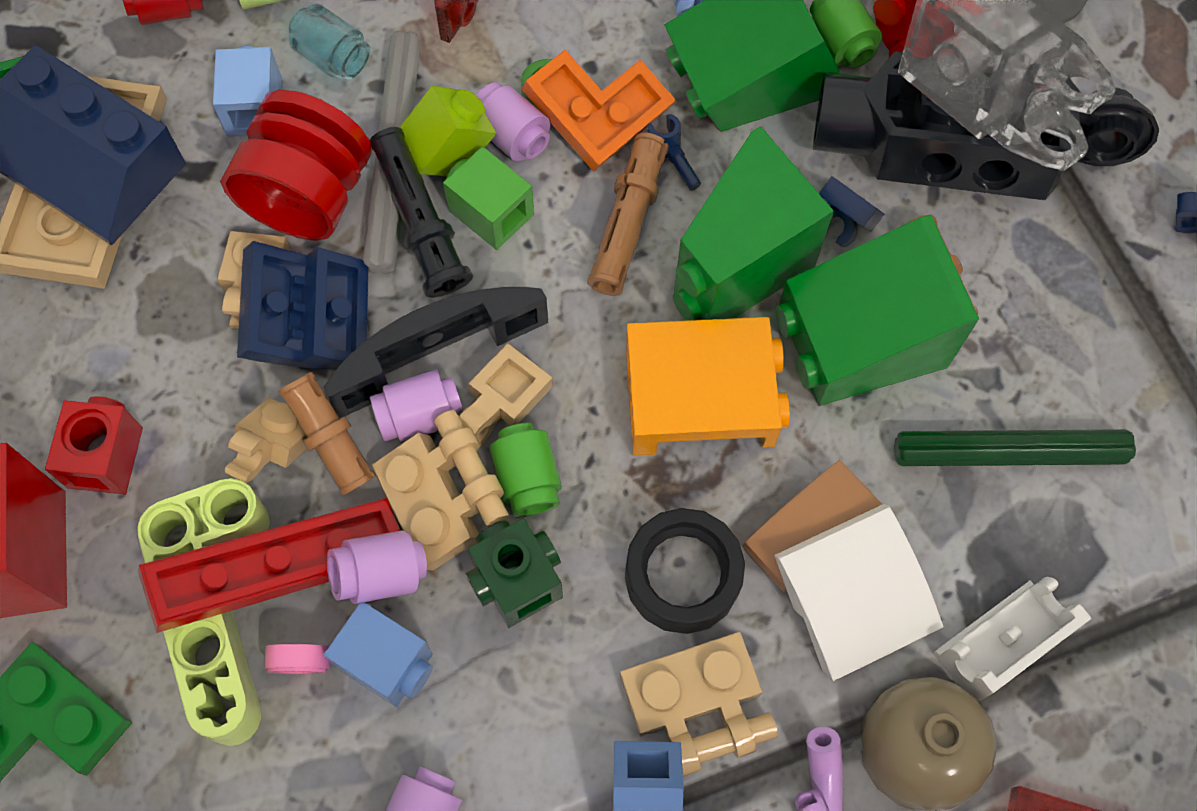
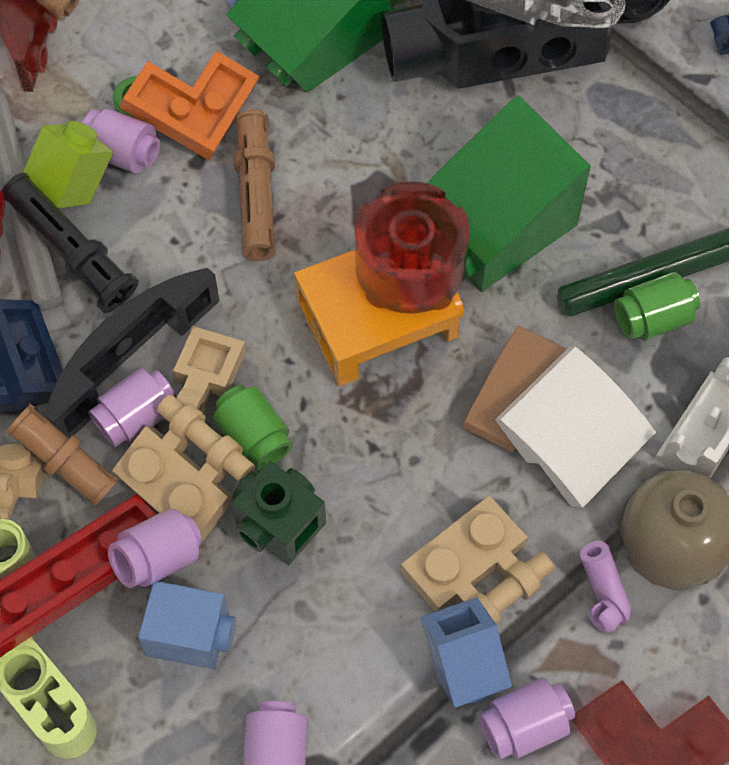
camera: 20 degrees left, 5 degrees down
(296, 659) = (112, 656): bright pink tile -> none
(488, 197) = (126, 209): bright green brick -> none
(675, 152) = (276, 123): dark blue hand -> none
(689, 524) = (431, 423): black tyre -> none
(749, 234) = (369, 146): green slope -> none
(757, 310) = (411, 248): none -> clear red brick
(850, 209) = (445, 118): dark blue tile -> none
(997, 490) = (657, 307): none -> bright green brick

